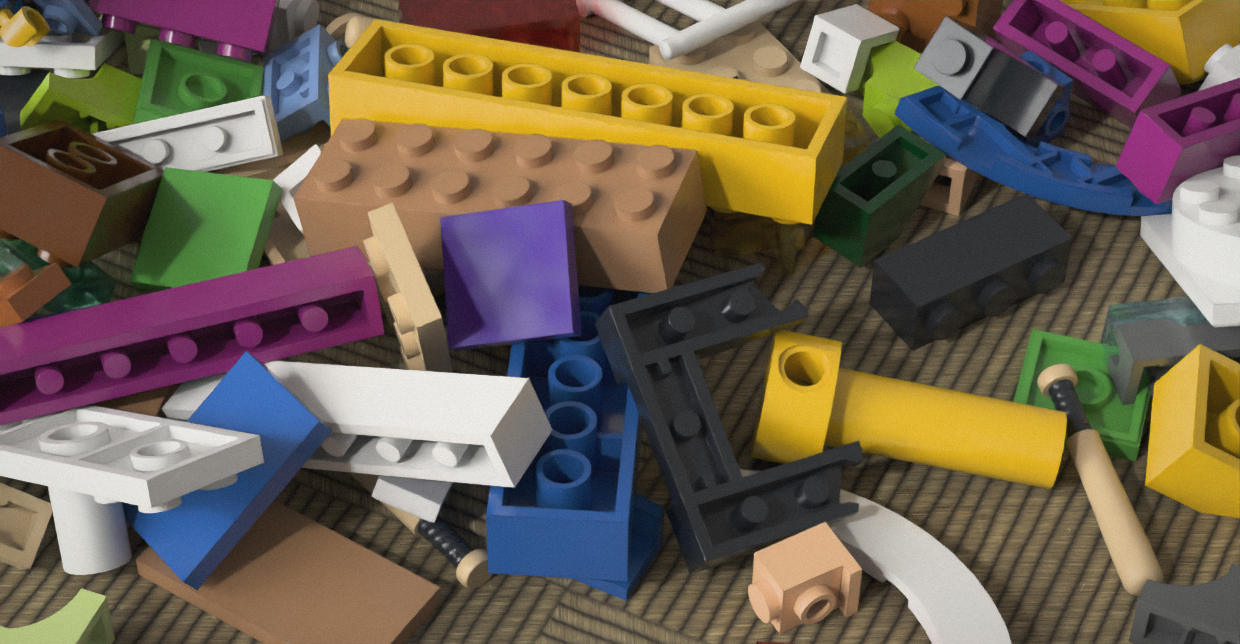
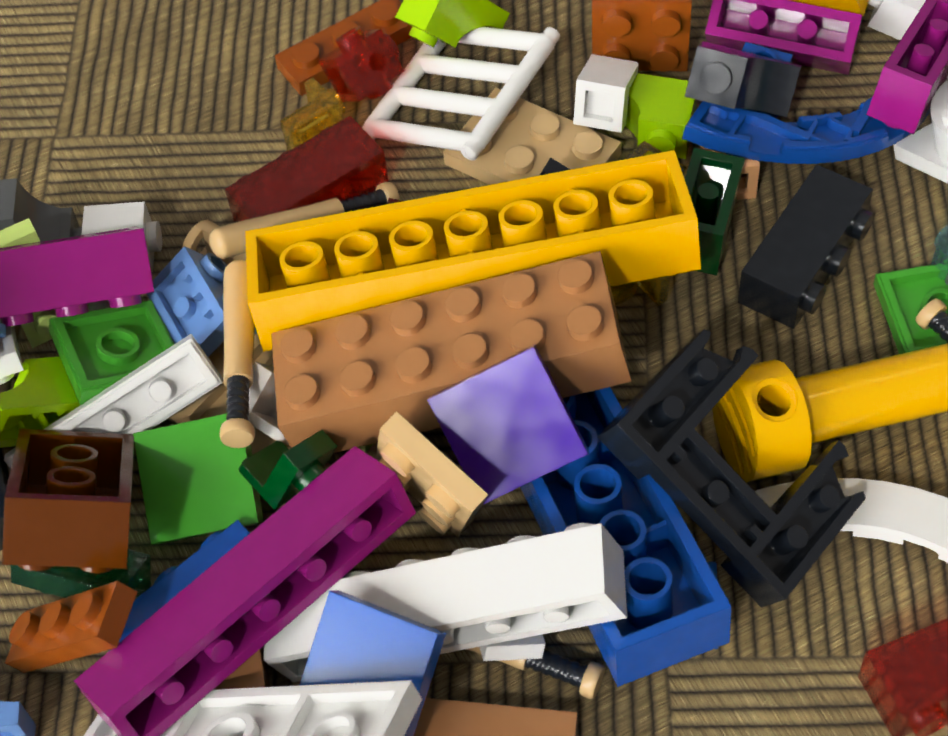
camera: 20 degrees left, 10 degrees up
(289, 241) = (284, 472): none -> dark green bracket
(290, 148) = (238, 356): none -> tan piece
(804, 579) = (853, 572): light nougat brick -> none

